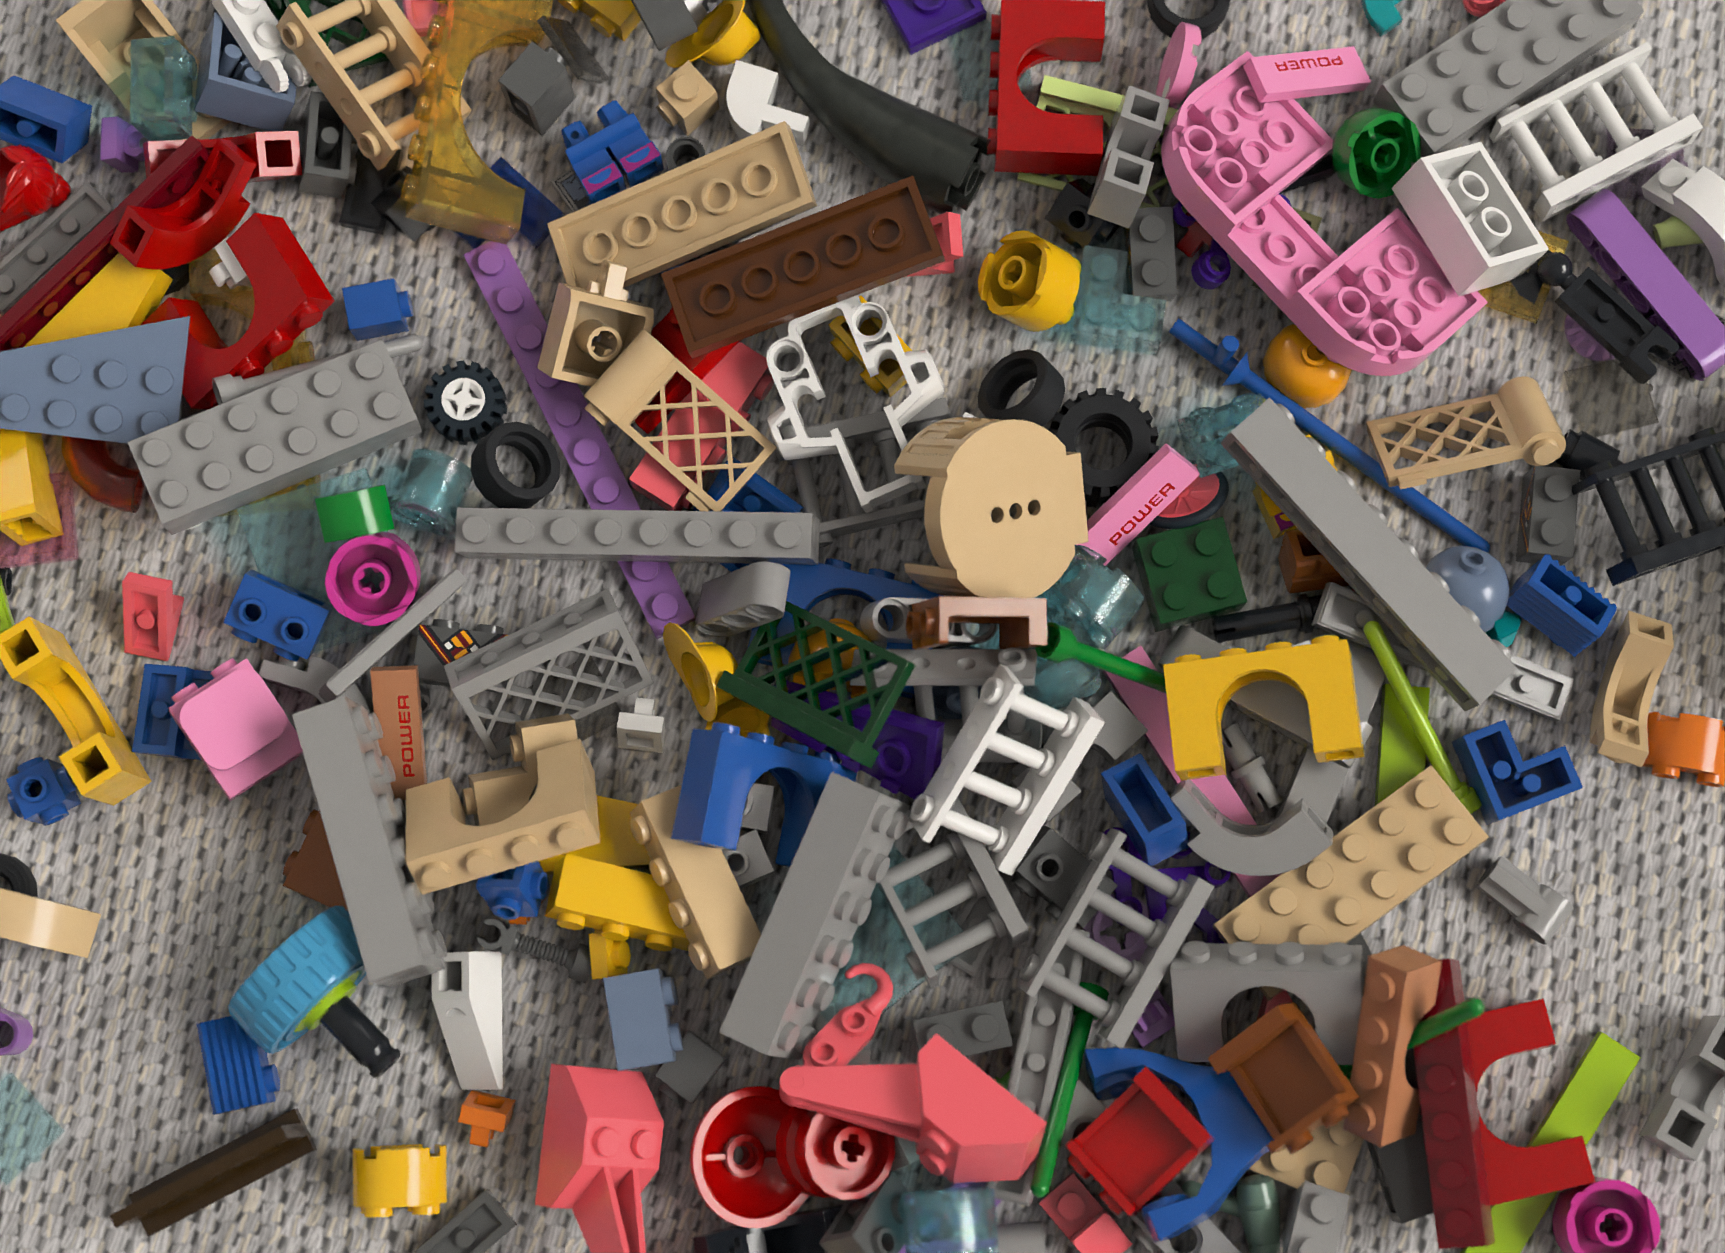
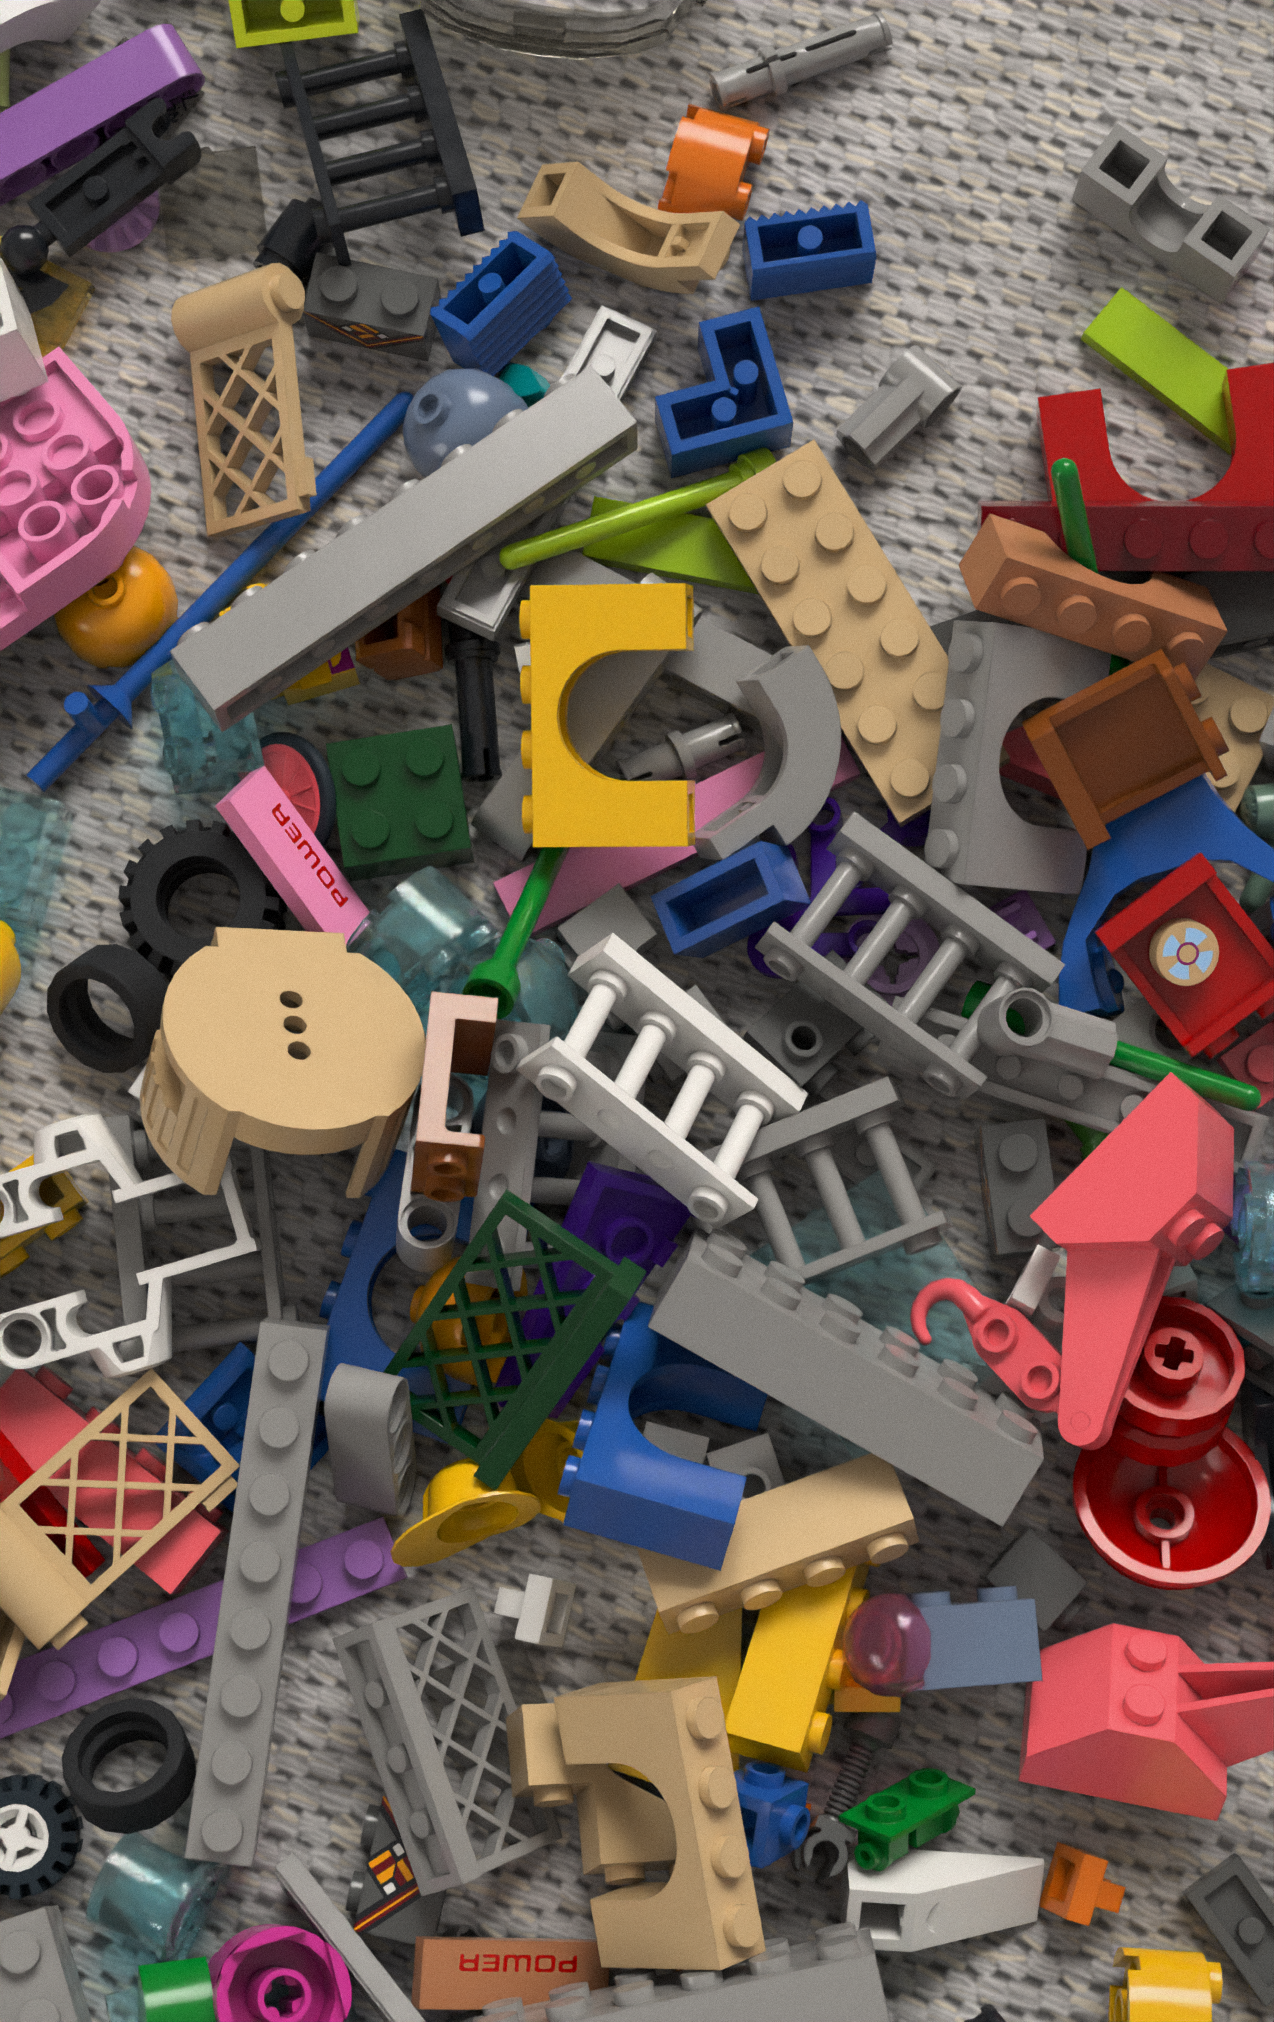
camera: 85 degrees left, 0 degrees up
(529, 995) = (904, 1816): none -> green hinge
(632, 960) = (887, 1645): none -> clear pink hair
(891, 1048) = (1036, 1286): none -> white tile
(1069, 1043) = (1051, 1033): none -> light grey piece
(1140, 1133) = (1184, 951): none -> tan tile
(1632, 822) = (808, 251): none -> blue brick

